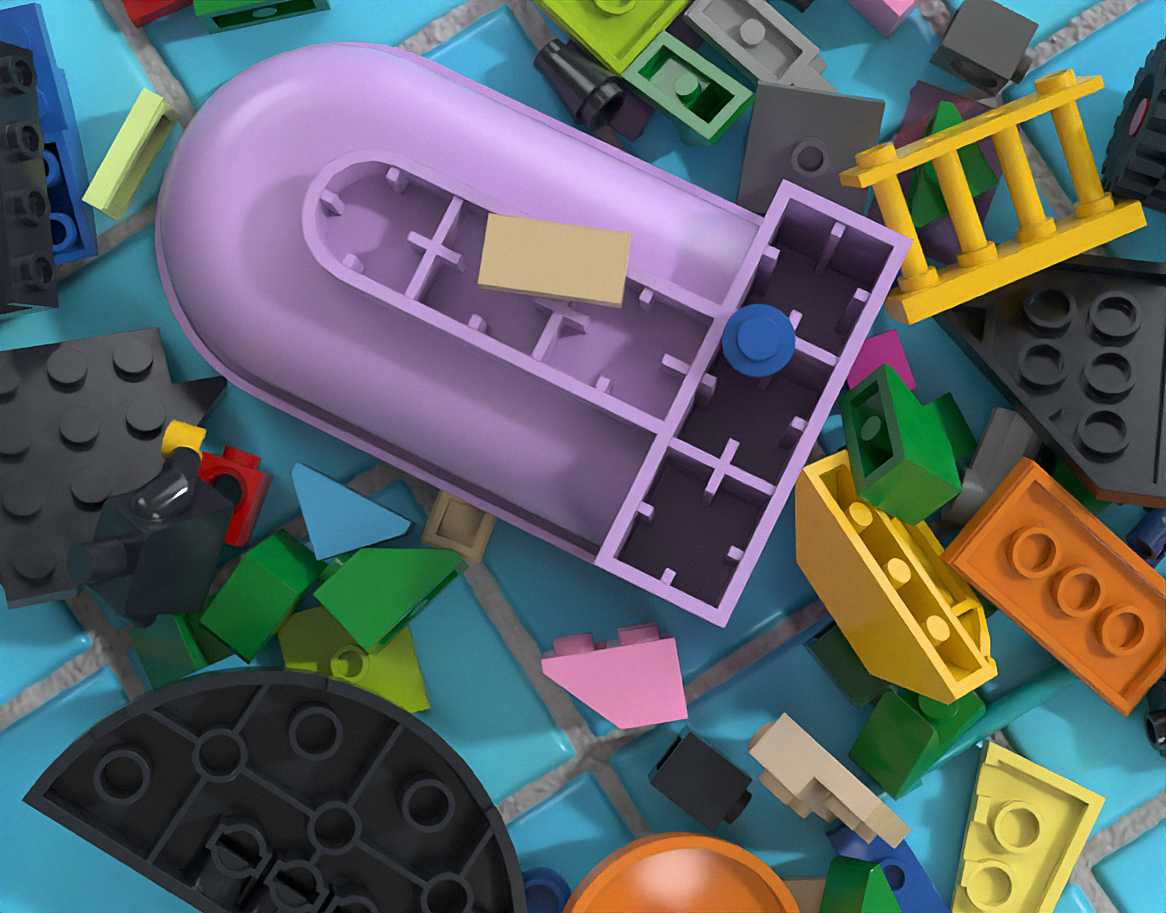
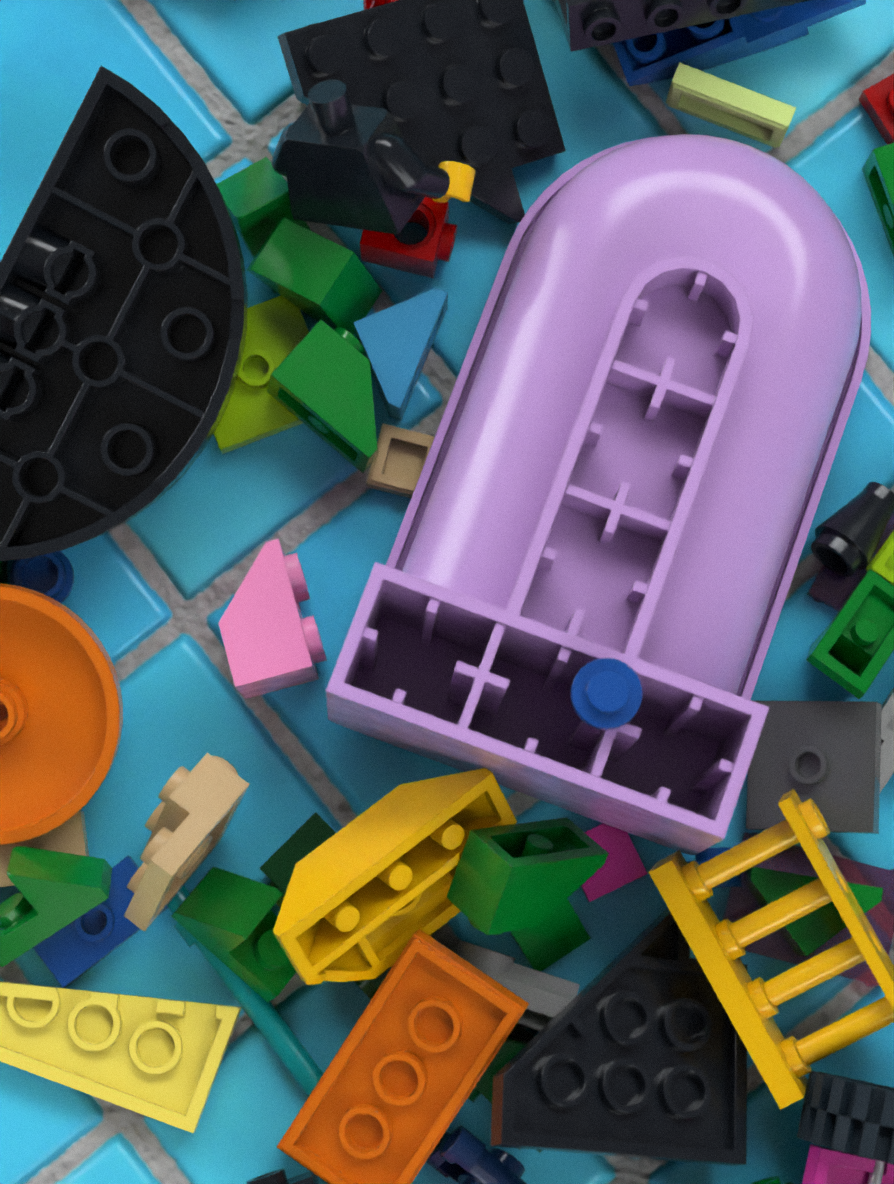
camera: 80 degrees right, 5 degrees down
(554, 260) = (662, 494): tan tile -> none
(702, 780) = (174, 720): black brick -> none

